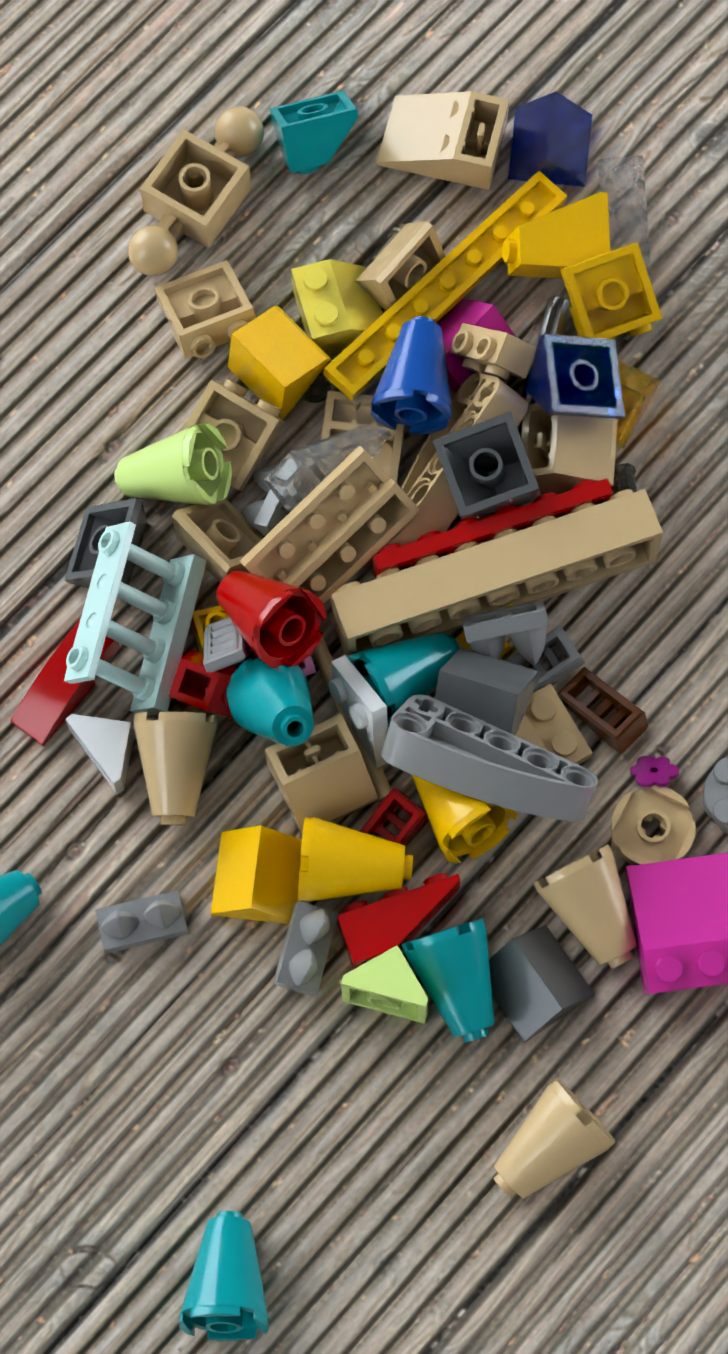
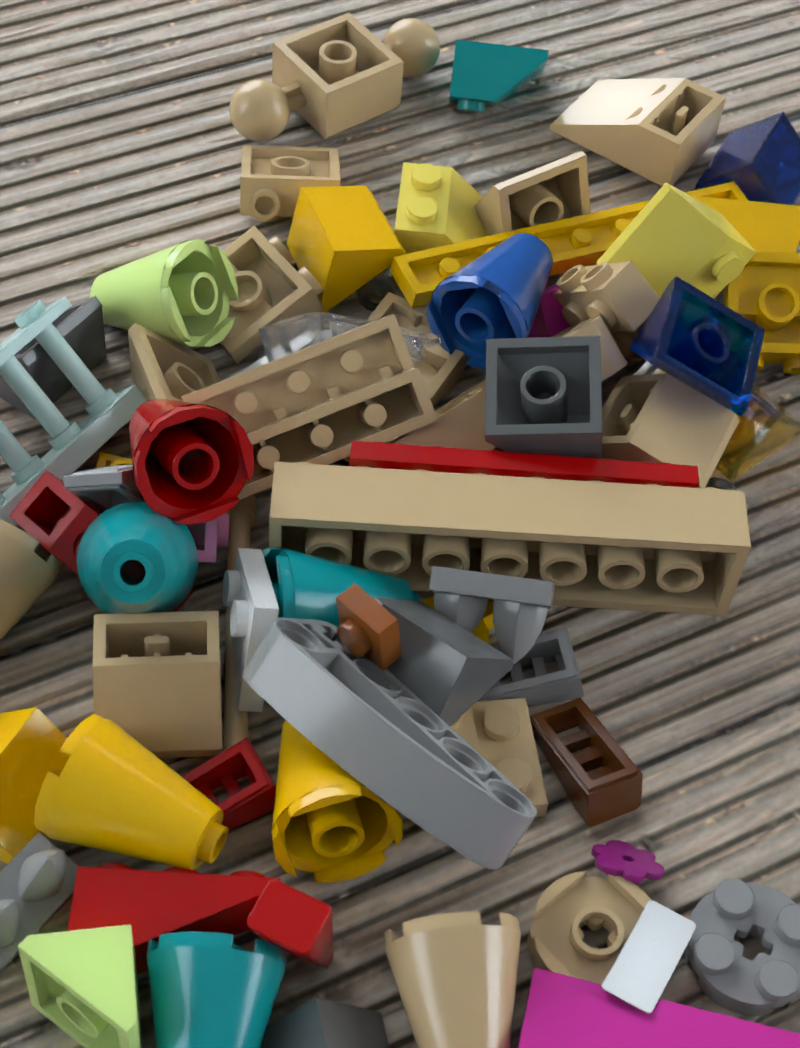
camera: 15 degrees right, 20 degrees down
(446, 697) = (368, 627): none -> dark orange plate
(482, 903) = (294, 923): none -> red slope
(533, 293) = (683, 240): none -> light yellow slope
(689, 831) = (649, 956): none -> white sticker

